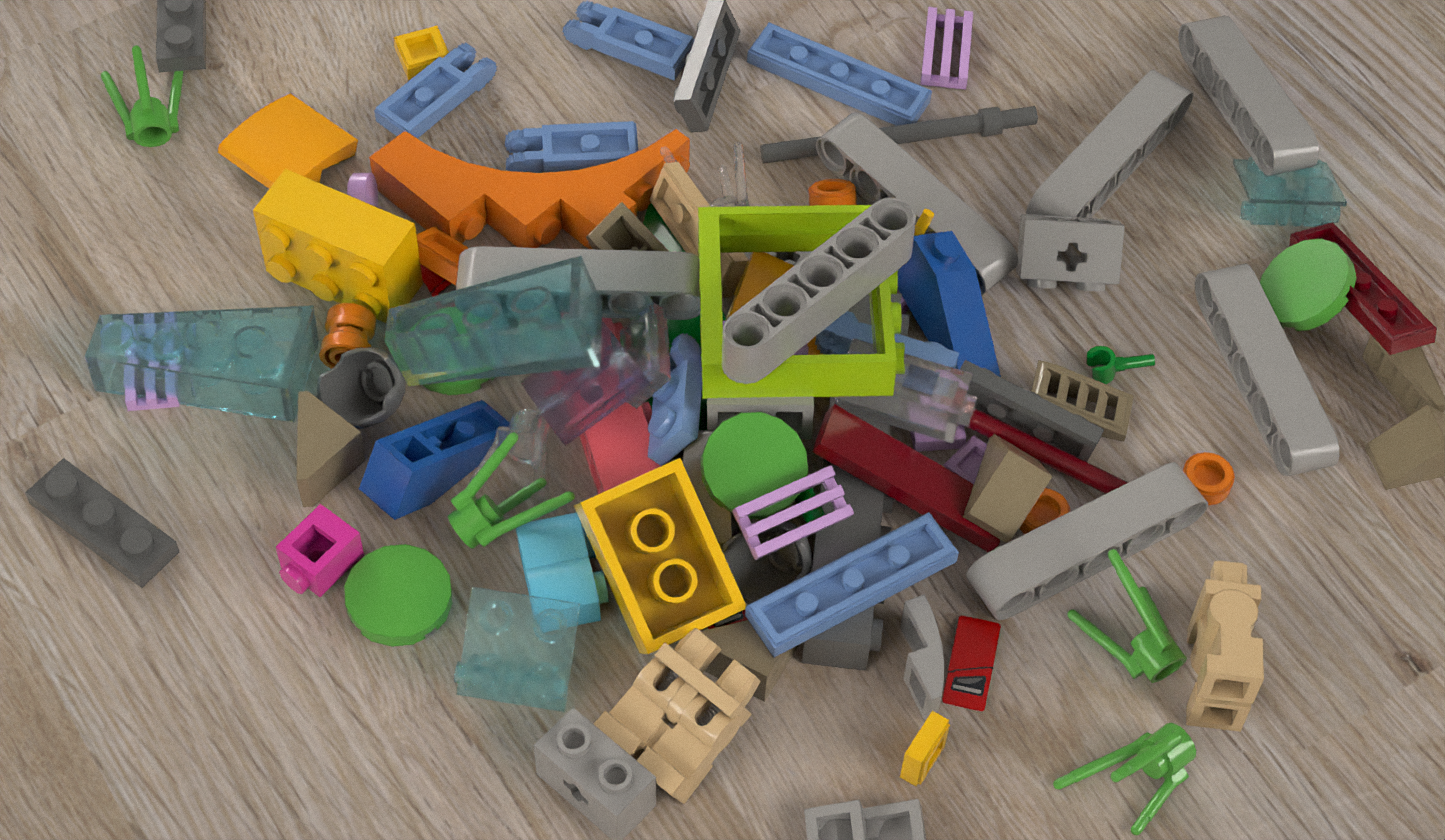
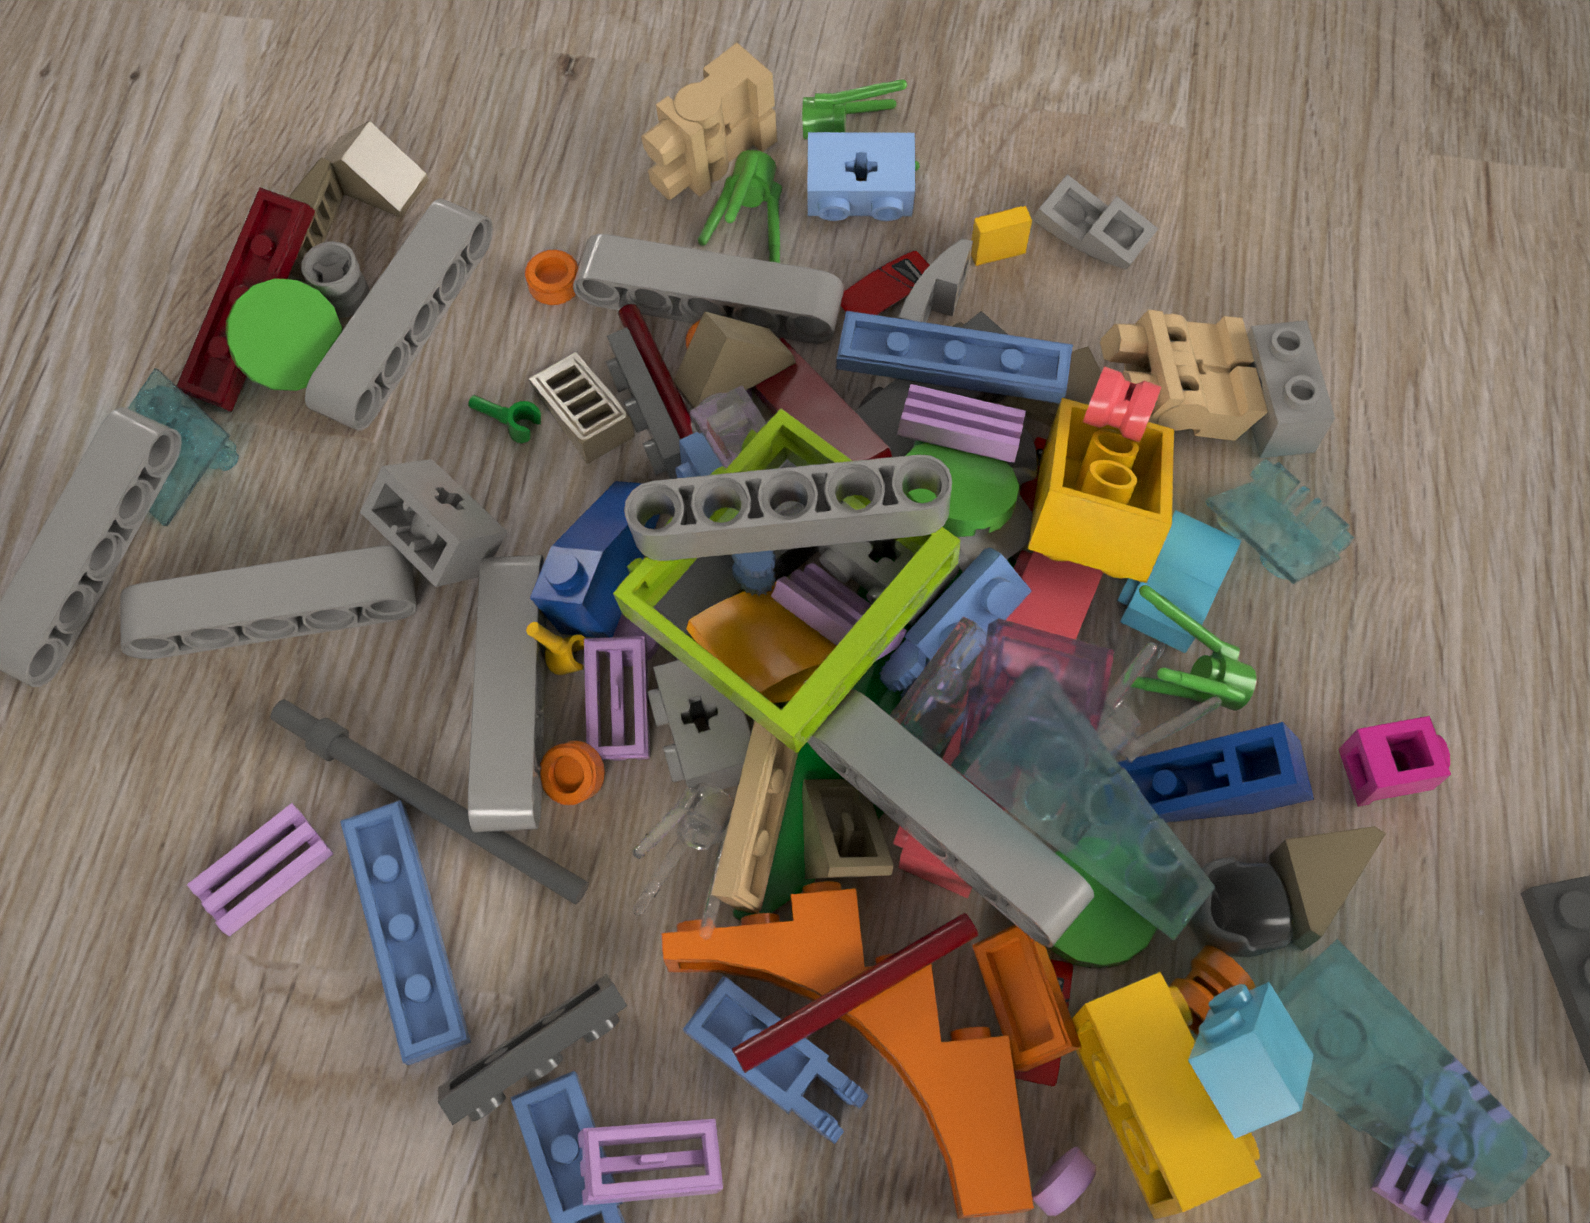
camera: 135 degrees left, 10 degrees up
(298, 257) = (1251, 1058): none -> medium azure piece
(398, 595) = (1336, 679): bright green tile -> none
(553, 175) = (854, 992): none -> dark red bar
(606, 72) = (593, 1166): none -> lavender tile
(692, 599) = (1122, 404): none -> coral wheel
(1078, 712) = (878, 157): none -> light blue brick
(1333, 352) = (337, 275): none -> light grey wheel

